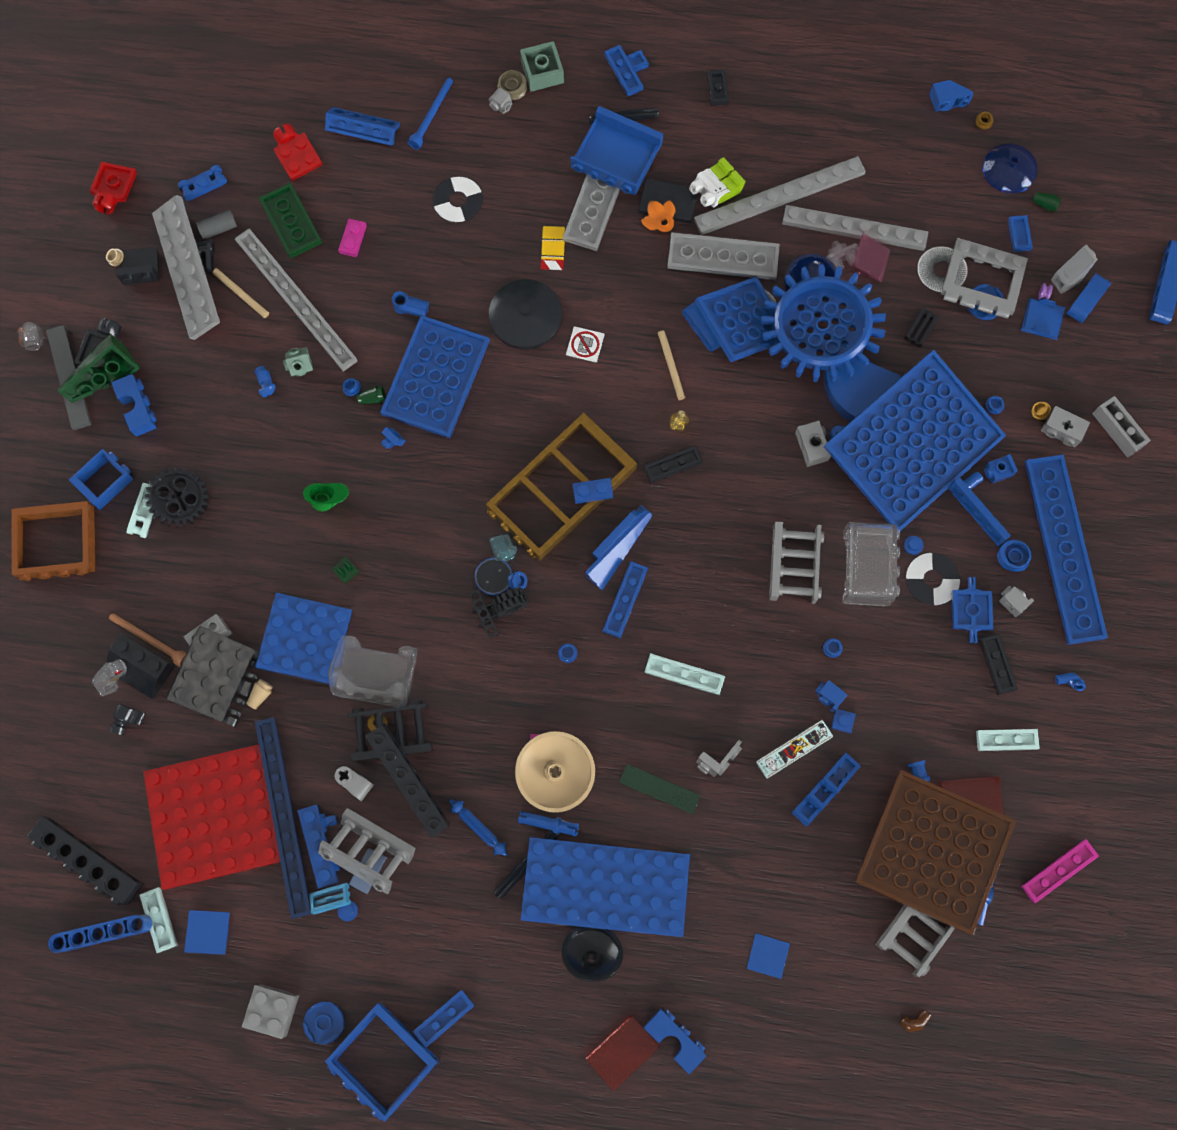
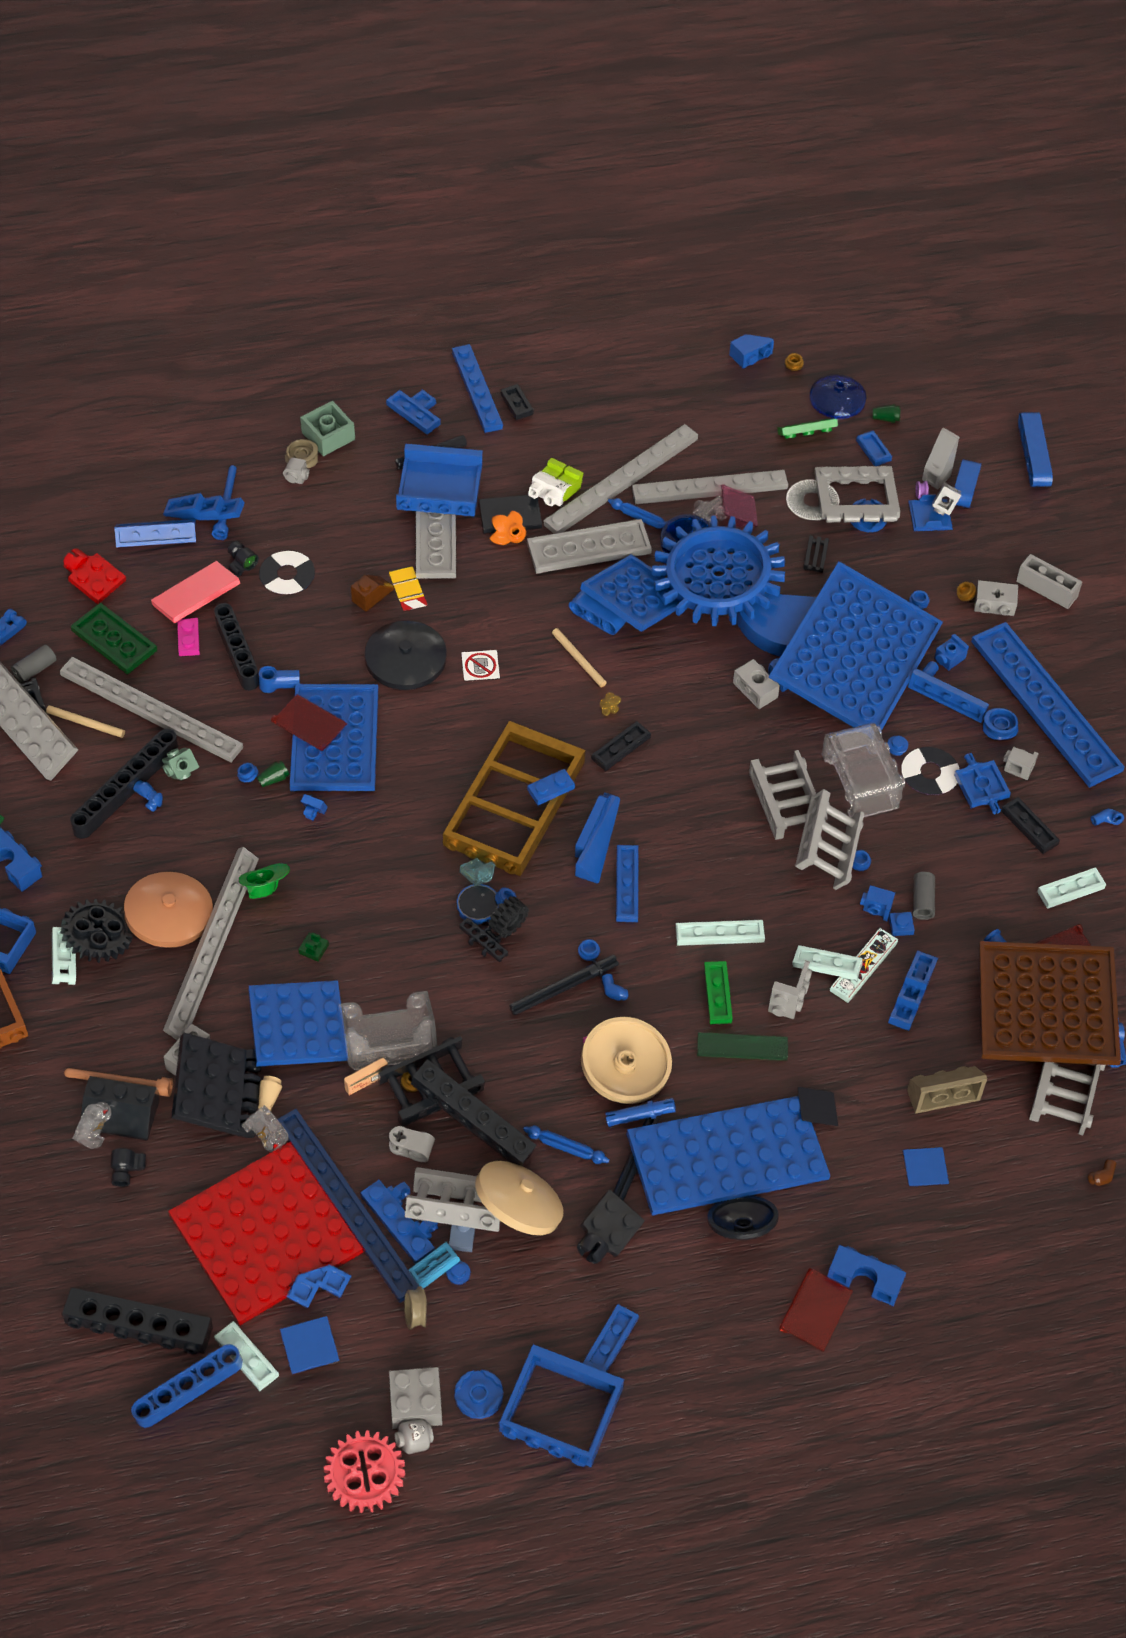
camera: 25 degrees left, 20 degrees down
(226, 1061) = (386, 1466): none -> coral gear
(239, 364) = (121, 784): none -> black beam
(241, 496) = (167, 909): none -> nougat dish
(241, 878) = (306, 1284): none -> blue tile
(246, 733) = (267, 1129): none -> clear leg
(256, 1044) = (414, 1436): none -> light grey head
(261, 542) = (210, 945): none -> light grey plate
(299, 934) = (415, 1308): none -> dark tan piece
(340, 707) = (364, 1076): none -> light nougat tile
(372, 196) = (195, 591): none -> coral tile
(386, 253) = (236, 646): none -> black beam
(409, 115) = (202, 508): none -> blue slope
(414, 871) = (519, 1198): none -> tan dish
(417, 357) = (309, 722): none -> clear red piece
(425, 176) = (244, 558): none -> black piece
(480, 918) = (608, 1228): none -> black plate
(519, 241) = (369, 591): none -> reddish brown slope
(534, 678) = (590, 972): none -> black axle
(571, 697) = (612, 990): none -> blue arm
(658, 732) = (718, 992): none -> green plate
(689, 62) = (477, 388): none -> blue plate
(699, 869) = (817, 1106): none -> black sticker
(763, 737) = (828, 962): none -> light aqua tile
(780, 236) = (637, 513): none -> blue wheel
(795, 621) = (812, 839): none -> light grey fence
(814, 894) = (946, 1088): none -> dark tan slope
(873, 702) = (924, 895): none -> dark grey pin
(967, 194) = (807, 428): none -> plate
(1069, 311) = (946, 507): none -> brick

